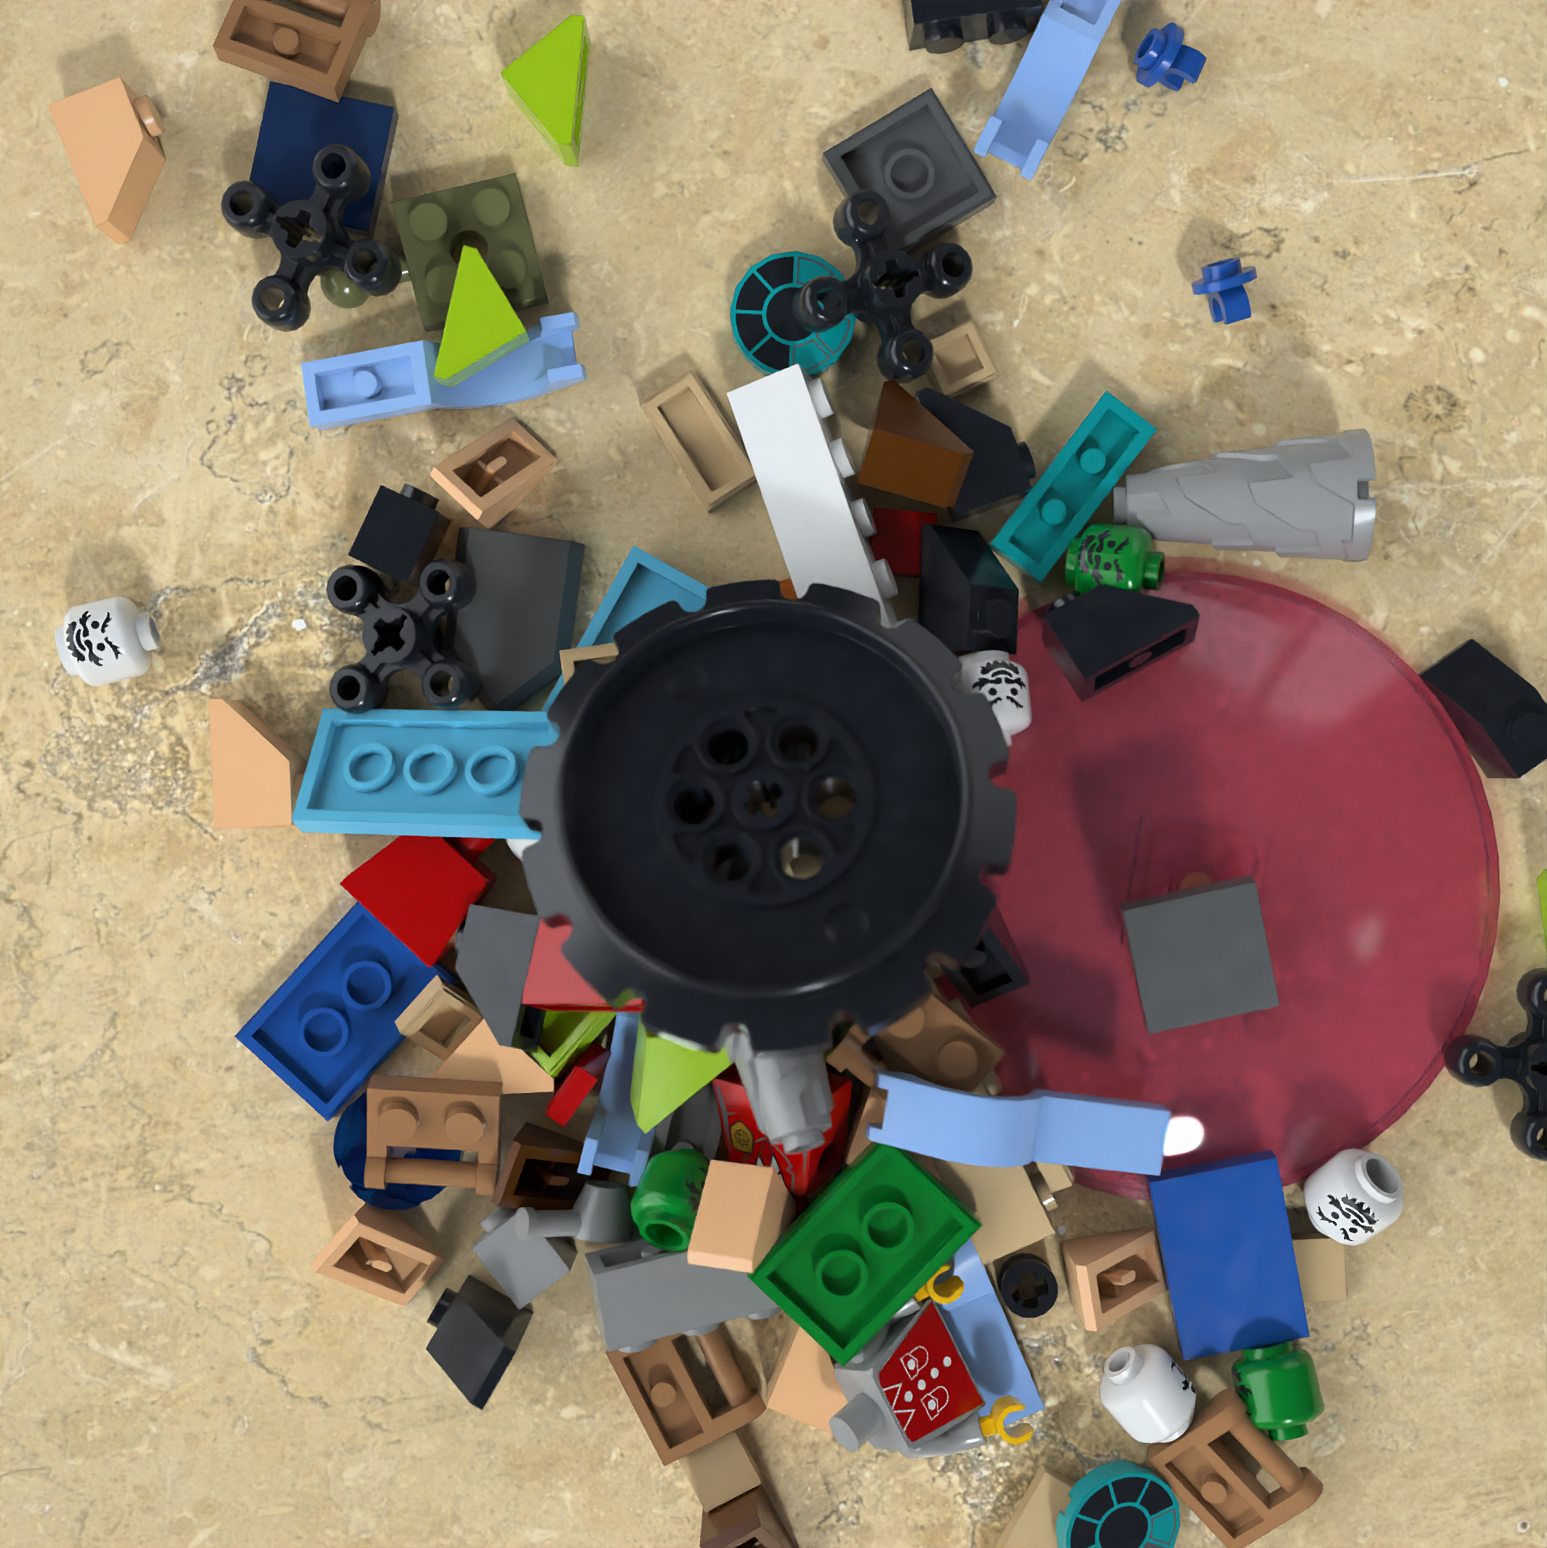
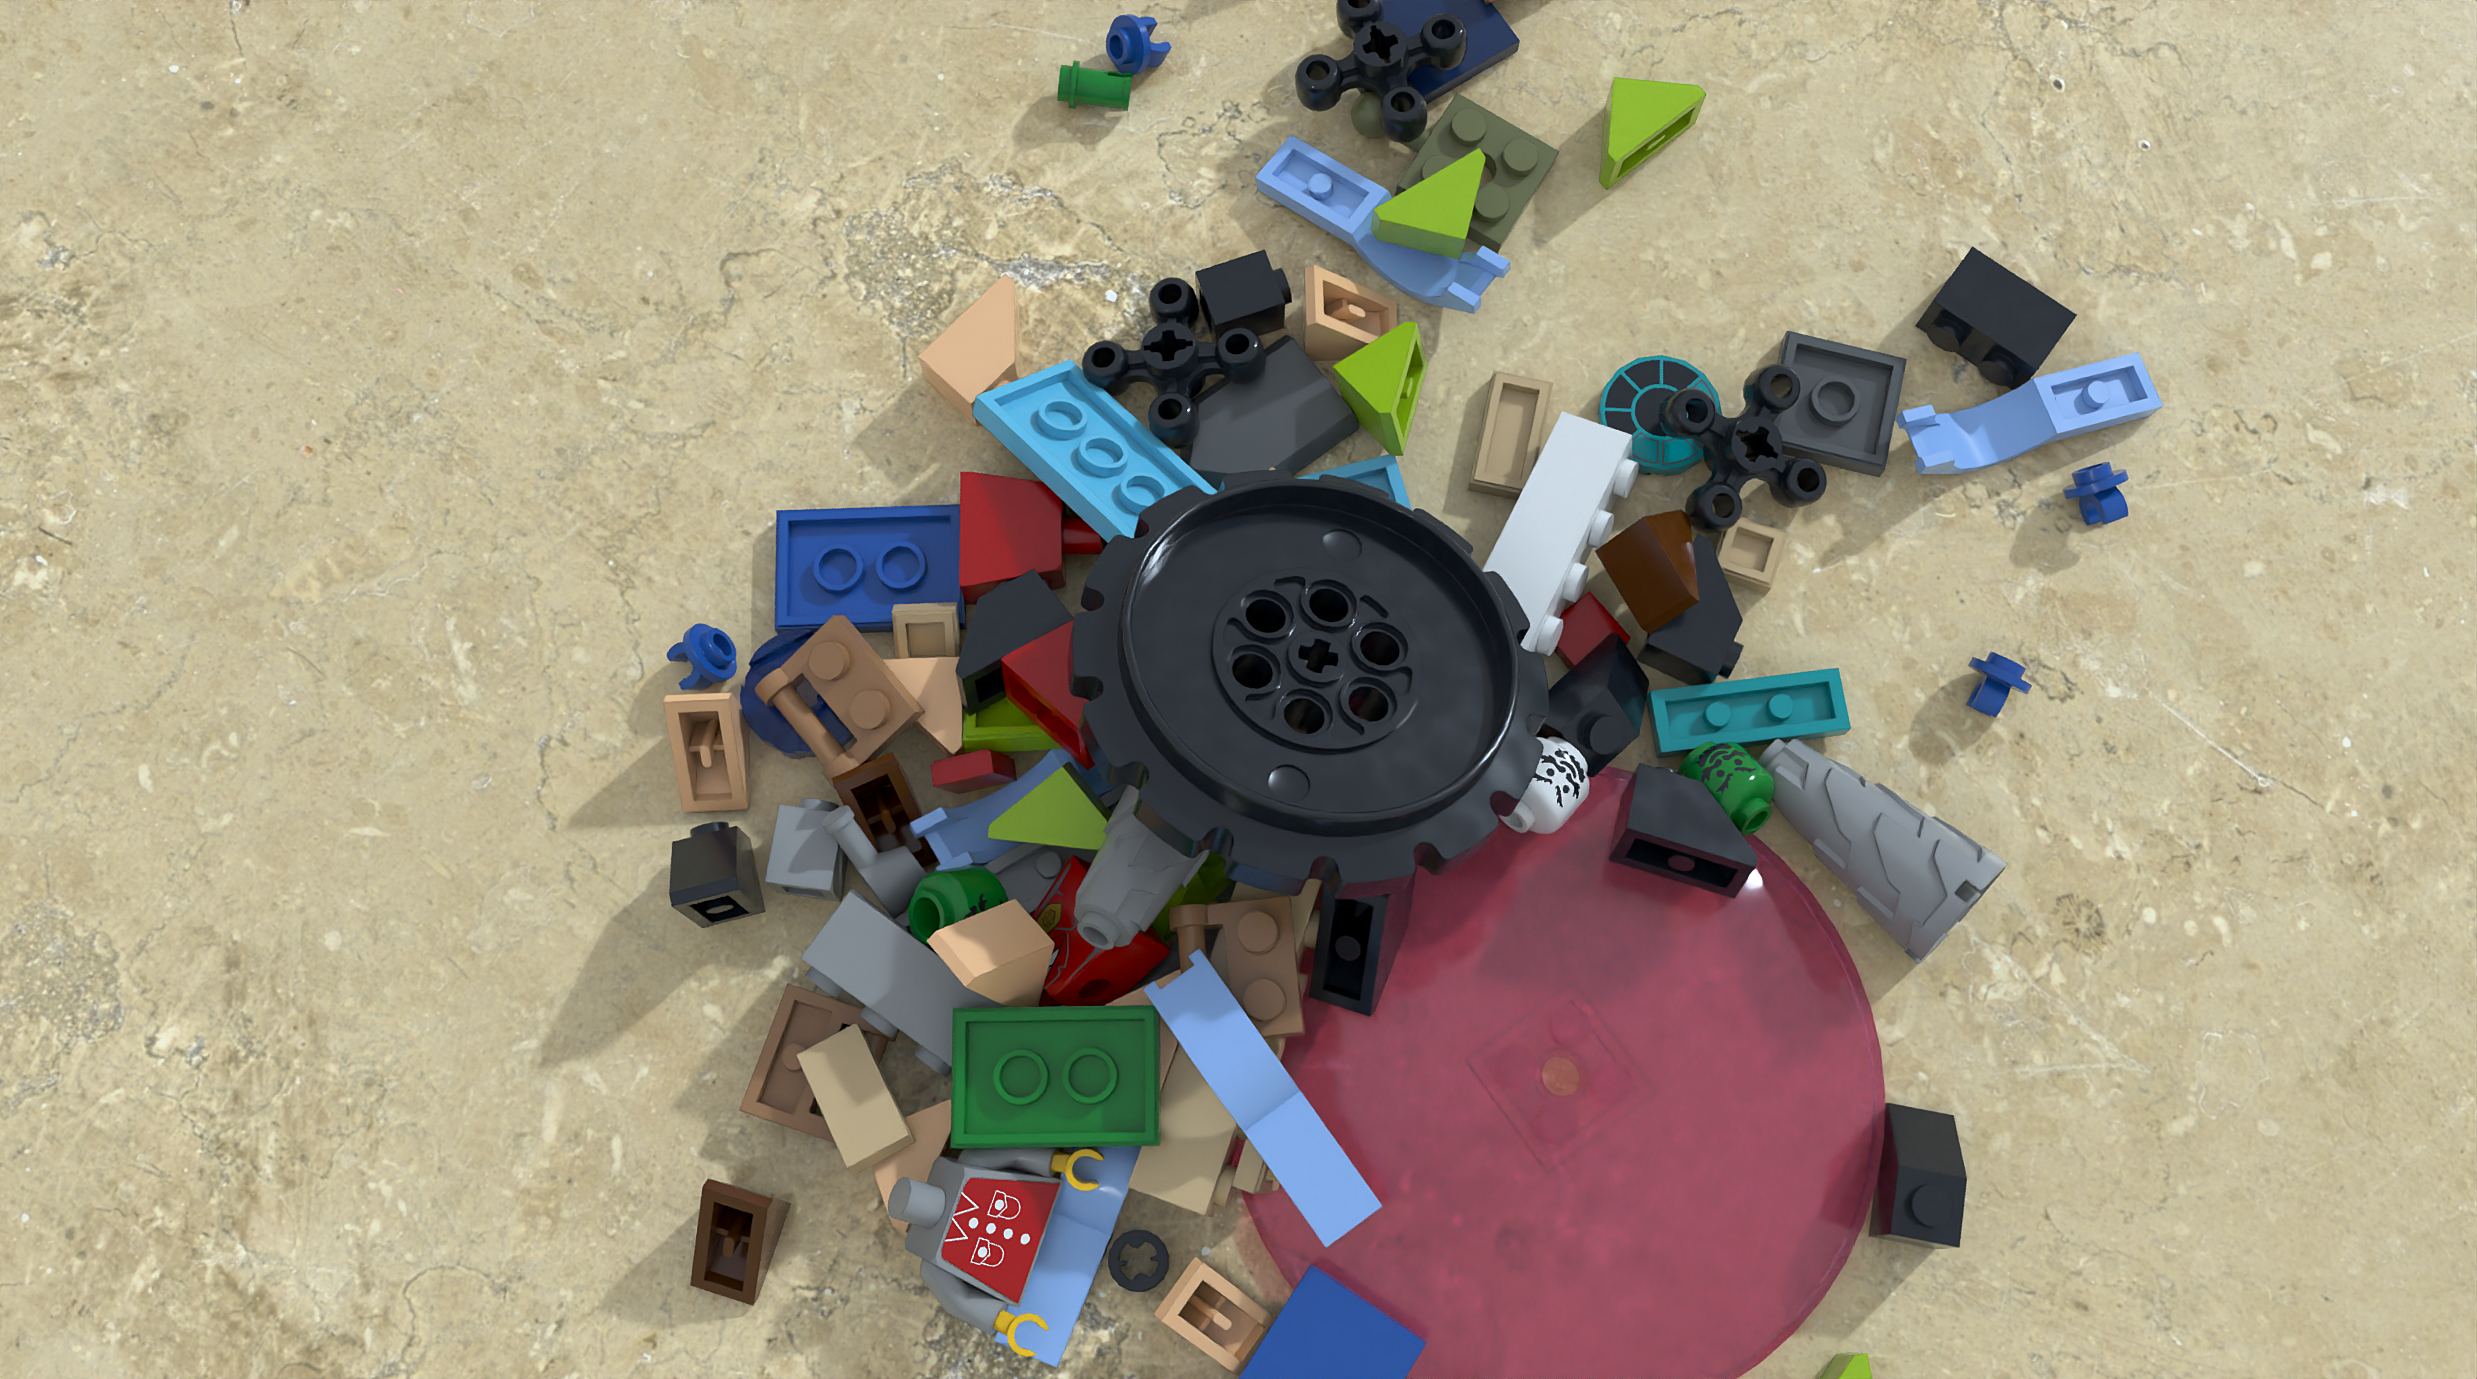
camera: 45 degrees right, 15 degrees down
(106, 414) = (1130, 44): none -> blue plate
(107, 641) = (978, 179): white head -> none
(112, 474) = (1094, 87): none -> green pin
(301, 1188) = (710, 654): none -> blue plate
(574, 499) = (1385, 384): none -> lime slope
(721, 1470) = (775, 1159): tan tile -> none
(738, 1389) = (855, 1099): none -> tan tile
(1199, 954) = (1517, 1113): dark grey tile -> none

